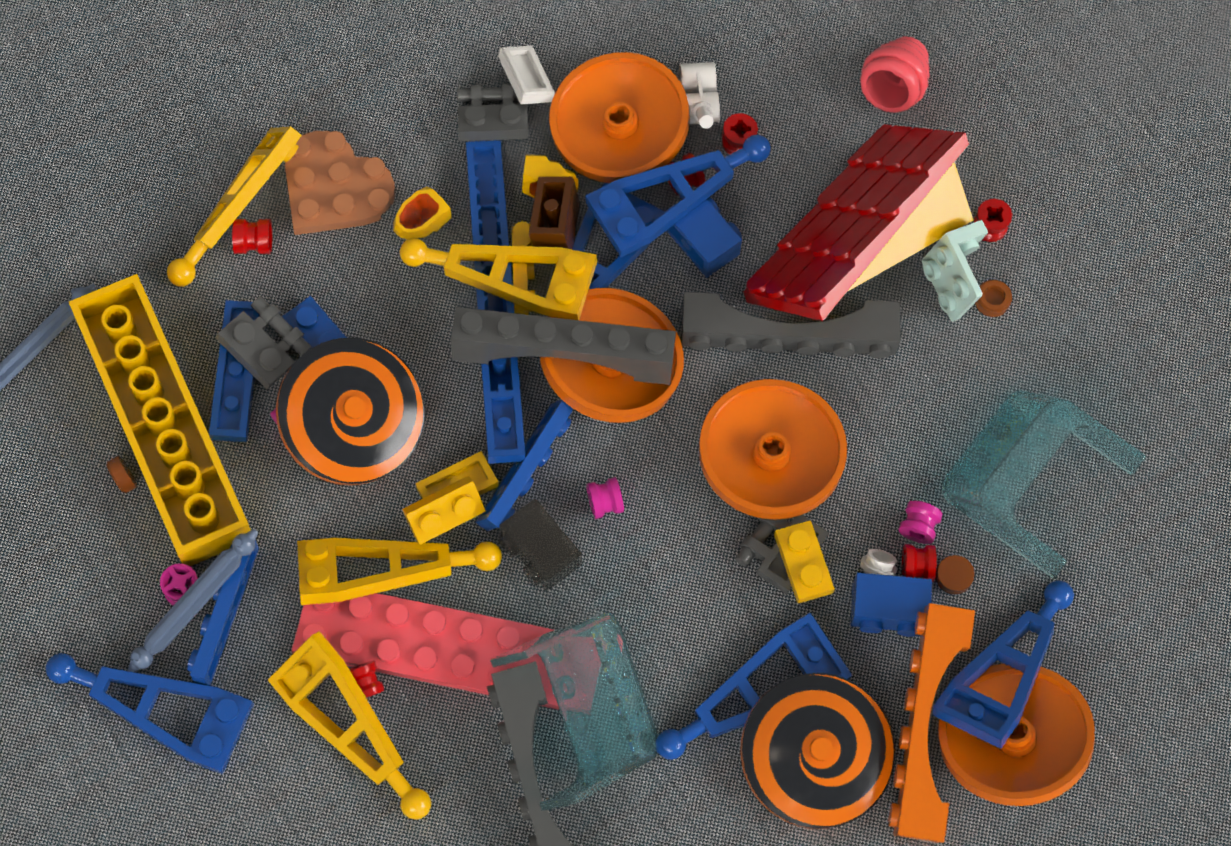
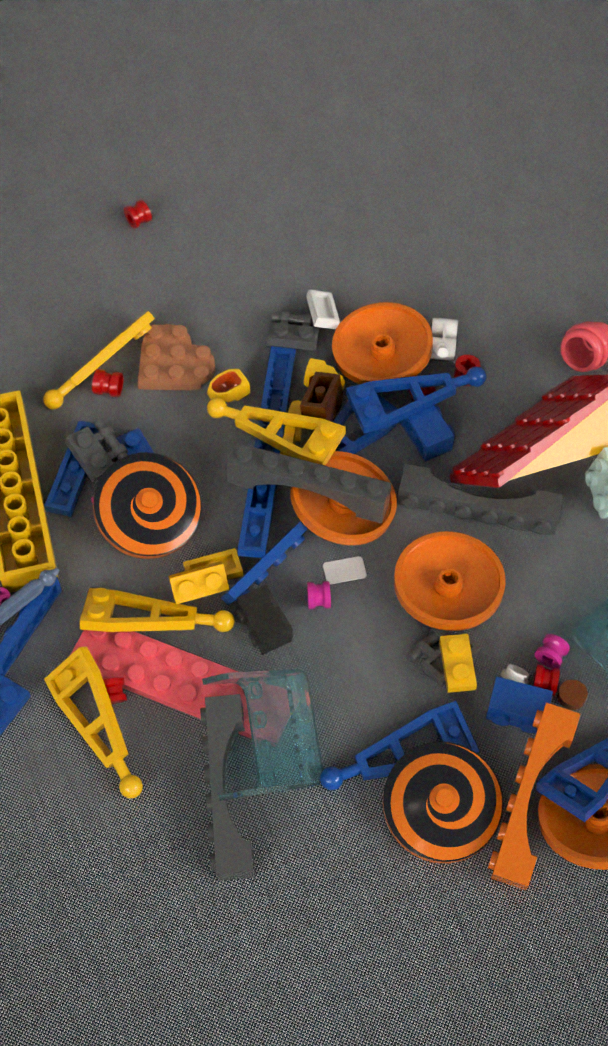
camera: 15 degrees right, 10 degrees down
(630, 453) = (344, 570): none -> white sticker

